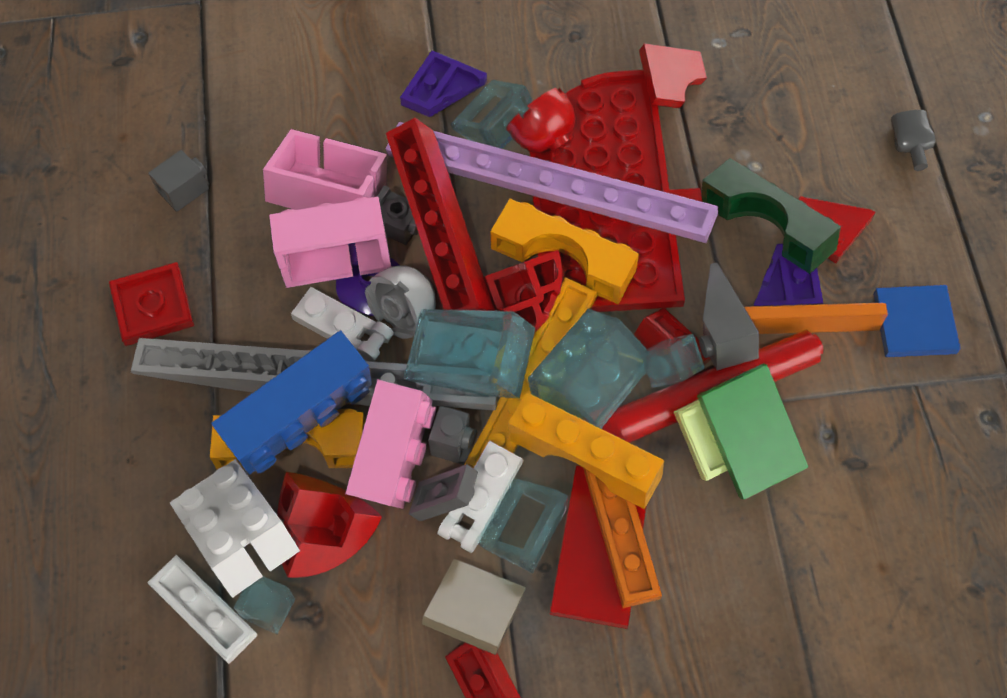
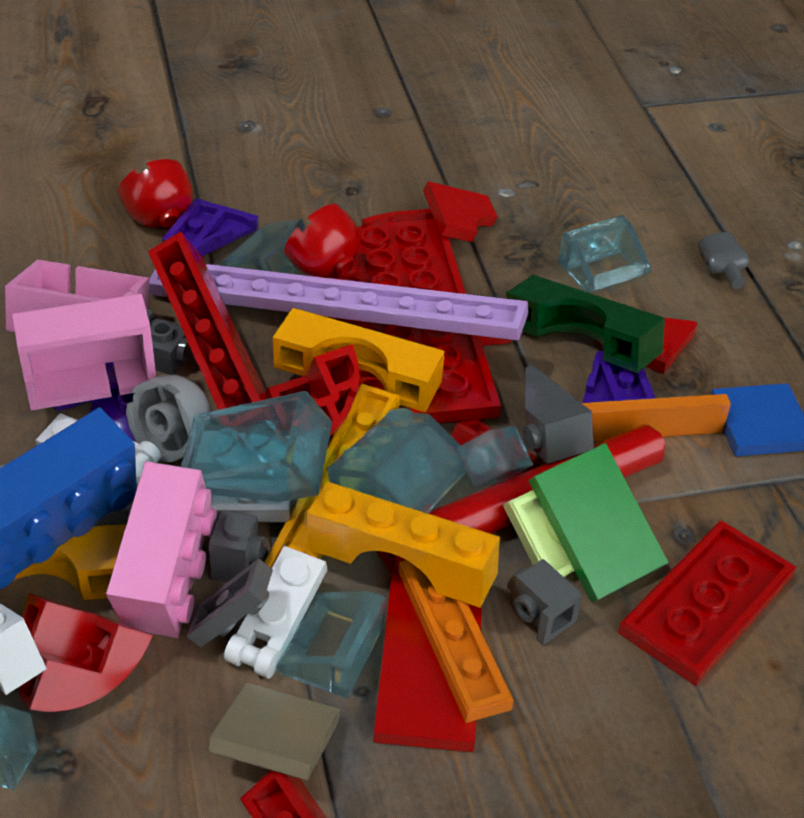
camera: 10 degrees left, 20 degrees down
(399, 49) = (157, 194): none -> red cylinder
(698, 499) = (545, 600): none -> dark grey brick
(795, 114) = (599, 242): none -> clear light blue tile
(836, 504) = (706, 602): none -> red tile

